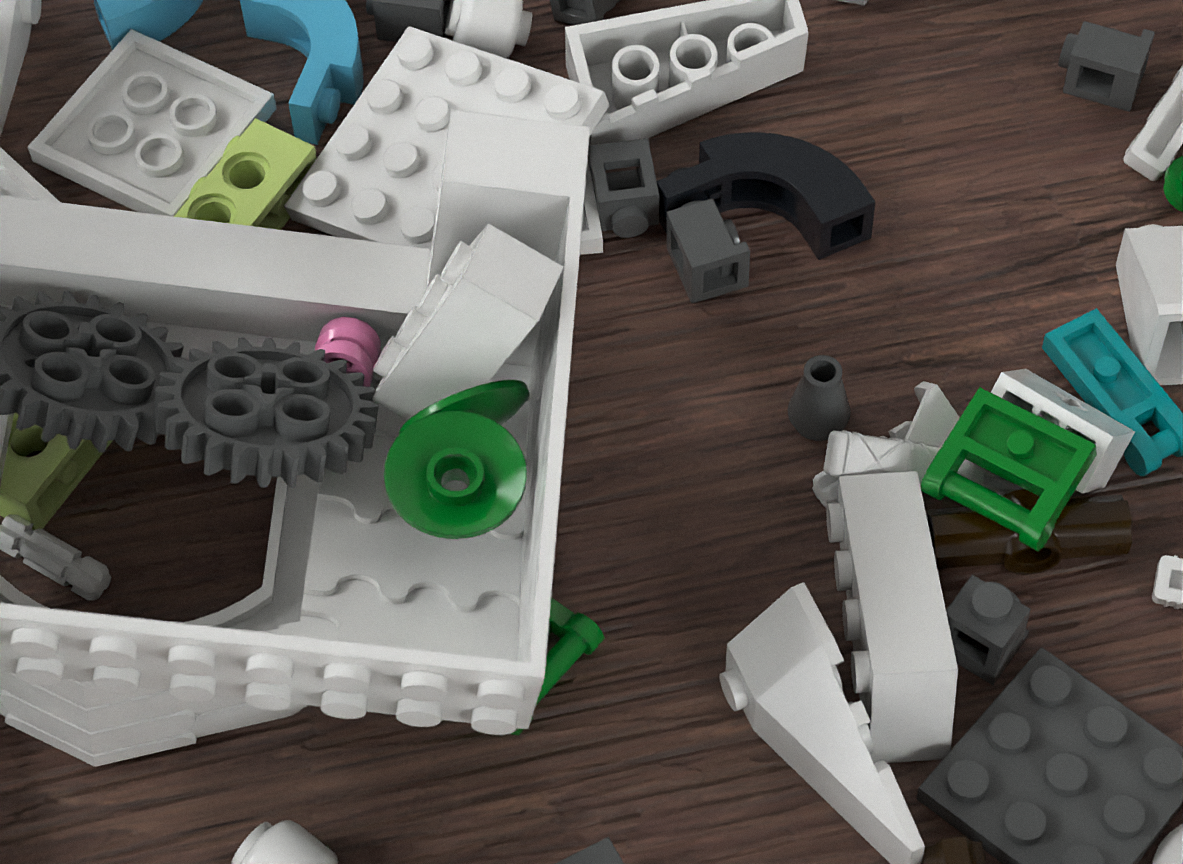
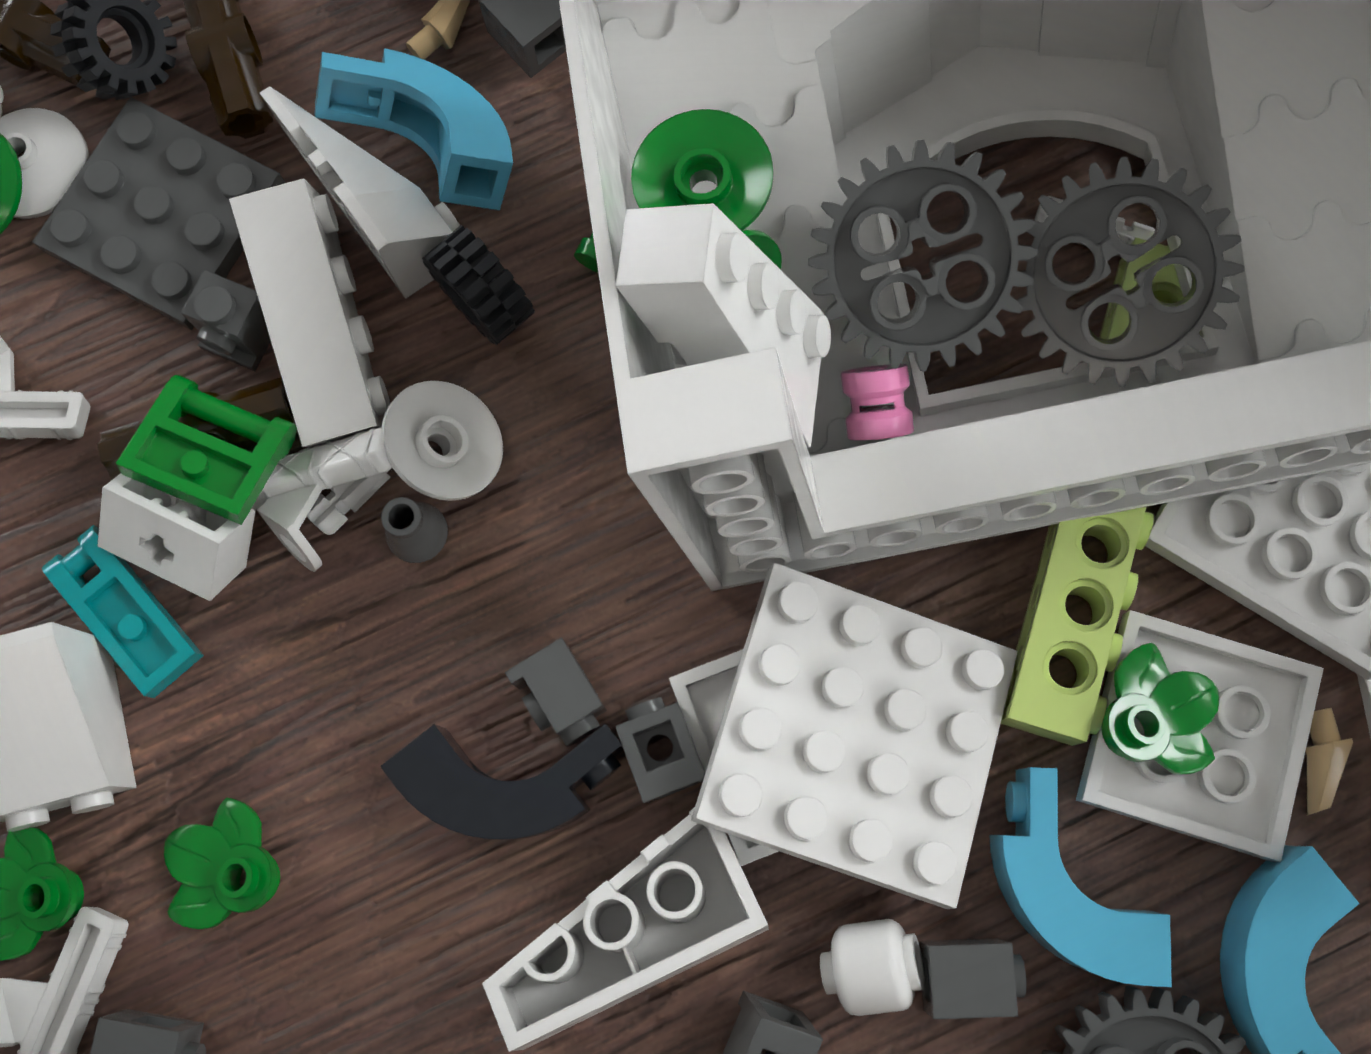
camera: 170 degrees right, 20 degrees up
(54, 95) = (1325, 761): none -> tan bar
(185, 129) = (1168, 708): none -> green plate
(702, 777) = (431, 110): none -> medium azure arch
(709, 589) = (478, 284): none -> black tyre
(776, 469) = (457, 424): none -> white dish
(1040, 187) = (211, 863): none -> green plate

